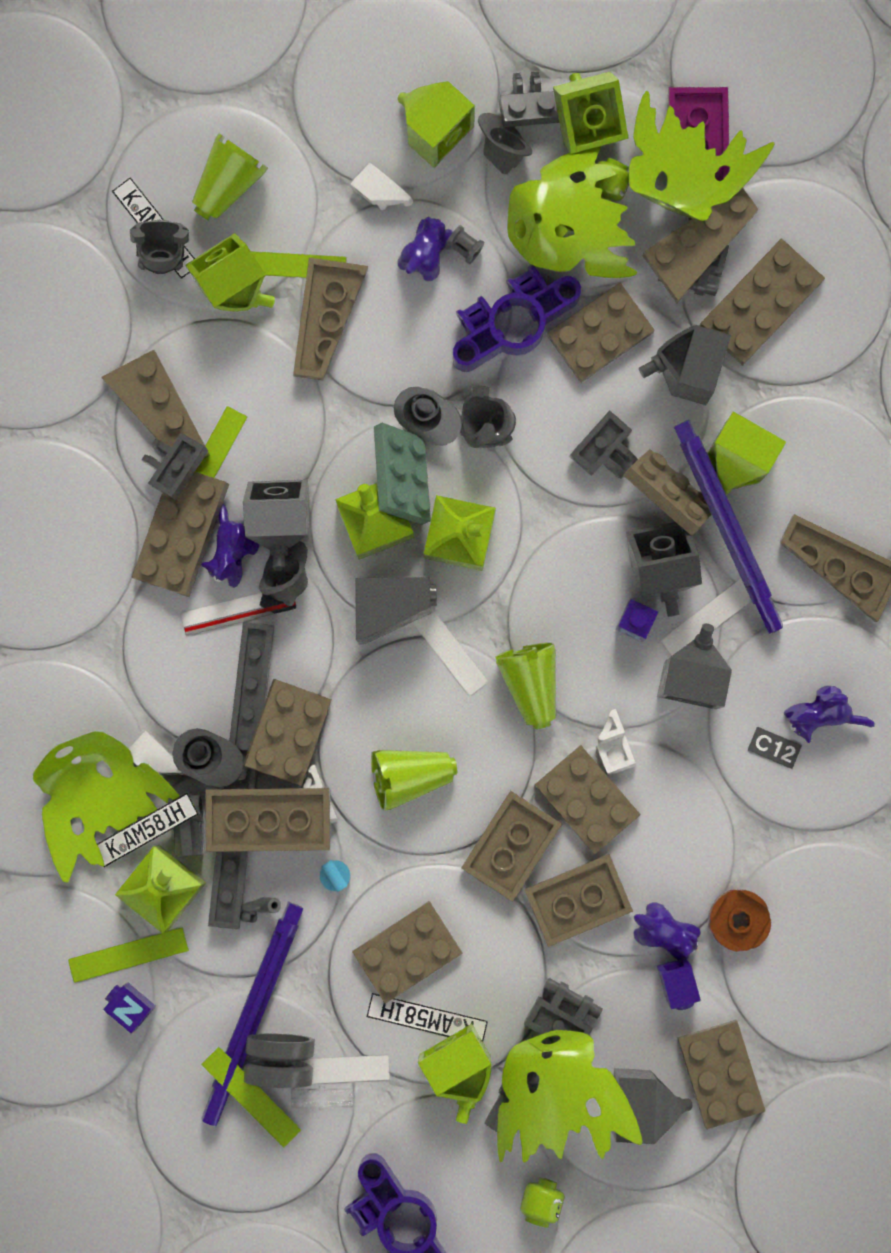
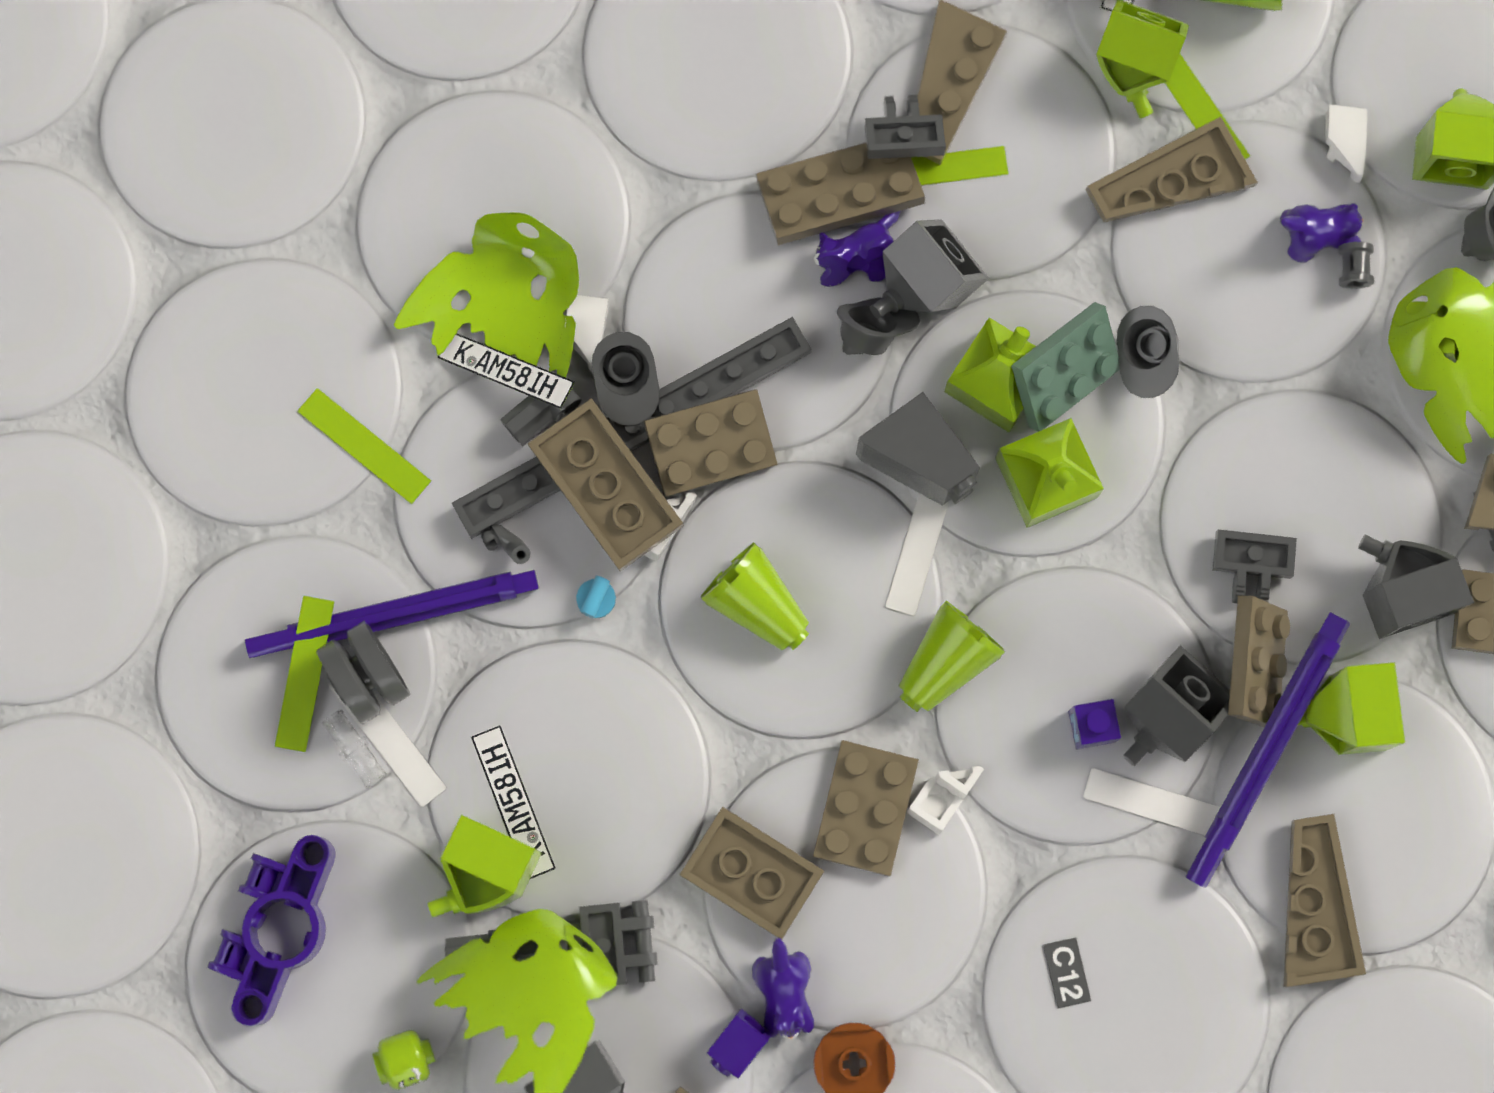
camera: 50 degrees right, 5 degrees down
(128, 1006) = (311, 481): dark purple brick -> none
(160, 888) = (455, 427): lime piece -> none
(232, 612) = (794, 302): sticker -> none
(407, 952) = (569, 731): dark tan plate -> none
(486, 420) = (1189, 416): dark grey helmet -> none
(511, 846) = (759, 761): dark tan plate -> none
(526, 291) = (1356, 365): dark purple piece -> none
(600, 332) = (1371, 472): dark tan plate -> none
(696, 673) = (1084, 825): dark grey piece -> none
(828, 709) = (1150, 999): dark purple animal -> none

